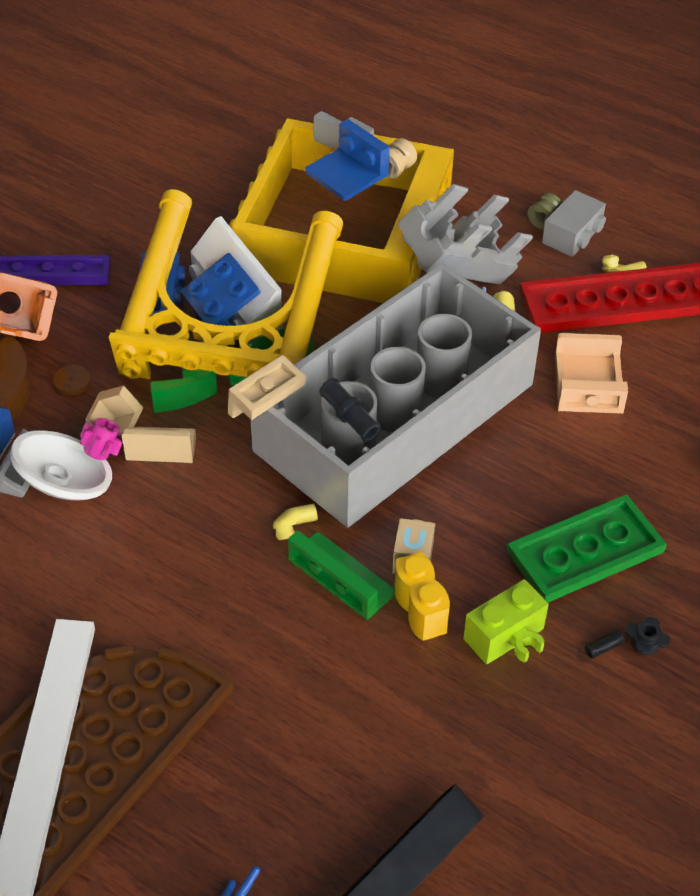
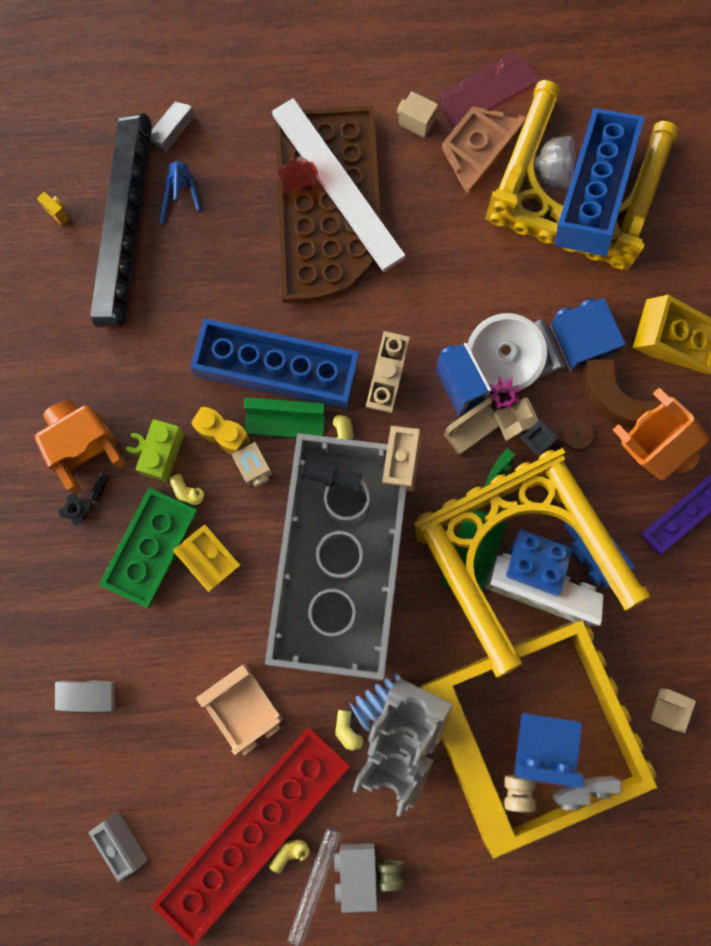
camera: 145 degrees right, 30 degrees up
(82, 798) = (297, 175): none -> clear red bracket
(113, 373) = (541, 439): none -> black brick
(129, 468) = (462, 378): none -> blue piece
(197, 527) = (387, 372): none -> tan slope
(216, 174) = (672, 710): none -> tan panel
(306, 617) = (275, 363): none -> blue brick
(504, 569) = (185, 494): none -> light yellow arm
(530, 498) = (206, 558): none -> yellow plate
(598, 685) = (74, 439): none -> orange piece
(615, 242) = (314, 887): none -> clear axle

